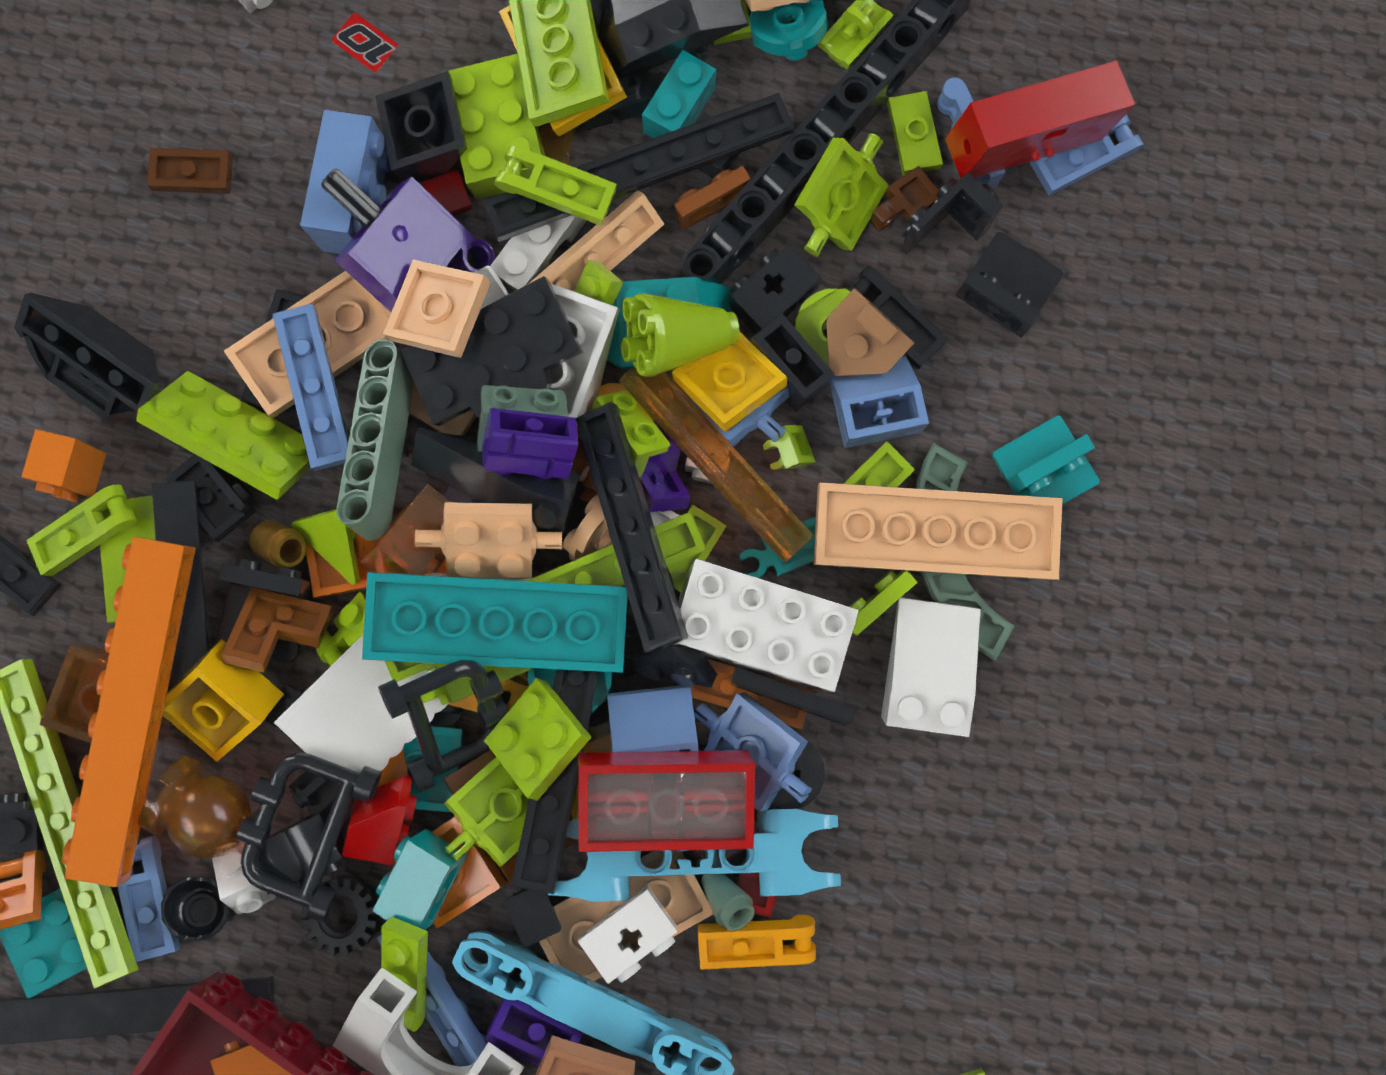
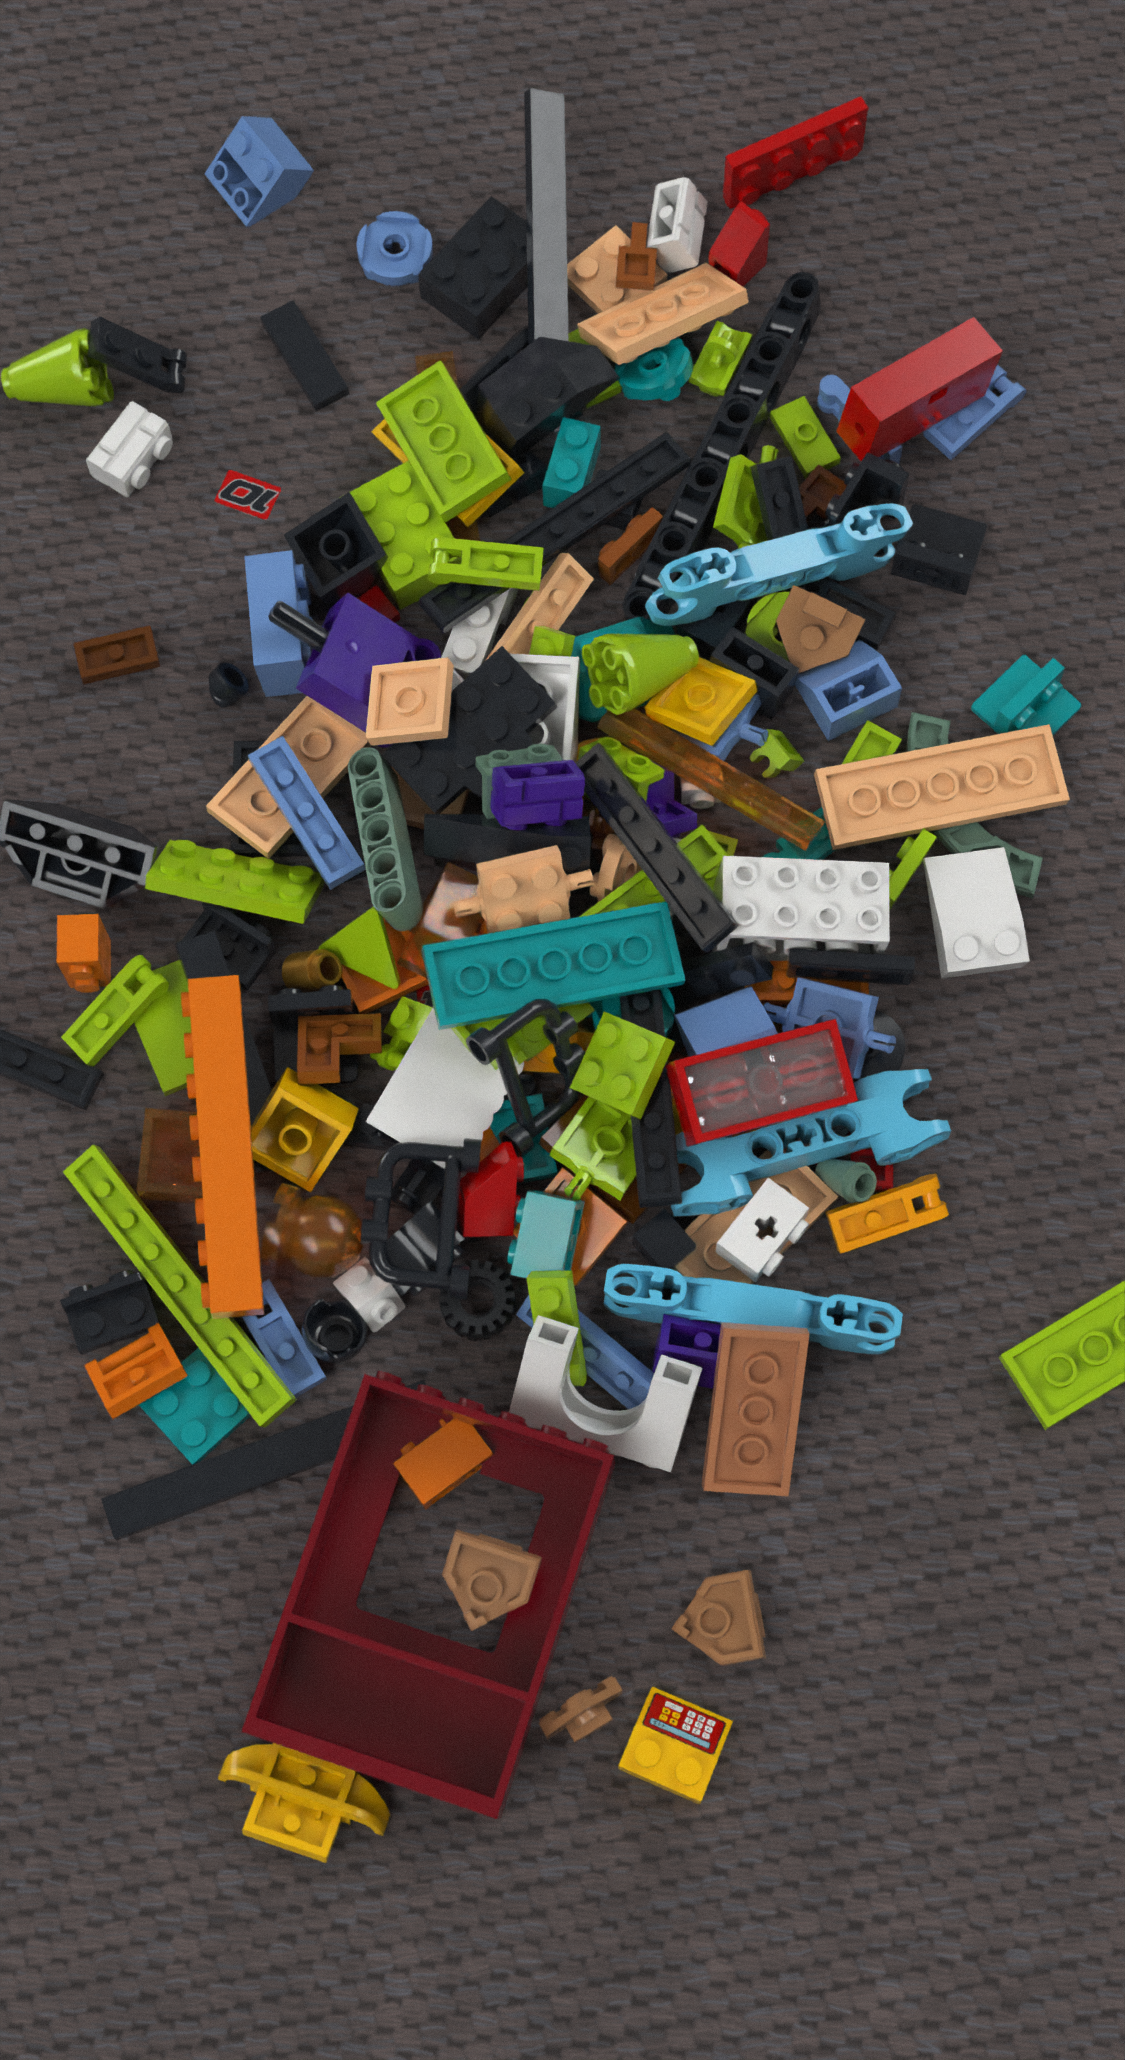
camera: 10 degrees left, 10 degrees down
(285, 230) = (227, 684): none -> black tile
(846, 262) = (722, 577): none -> medium azure piece
(866, 209) = (779, 498): none -> black plate

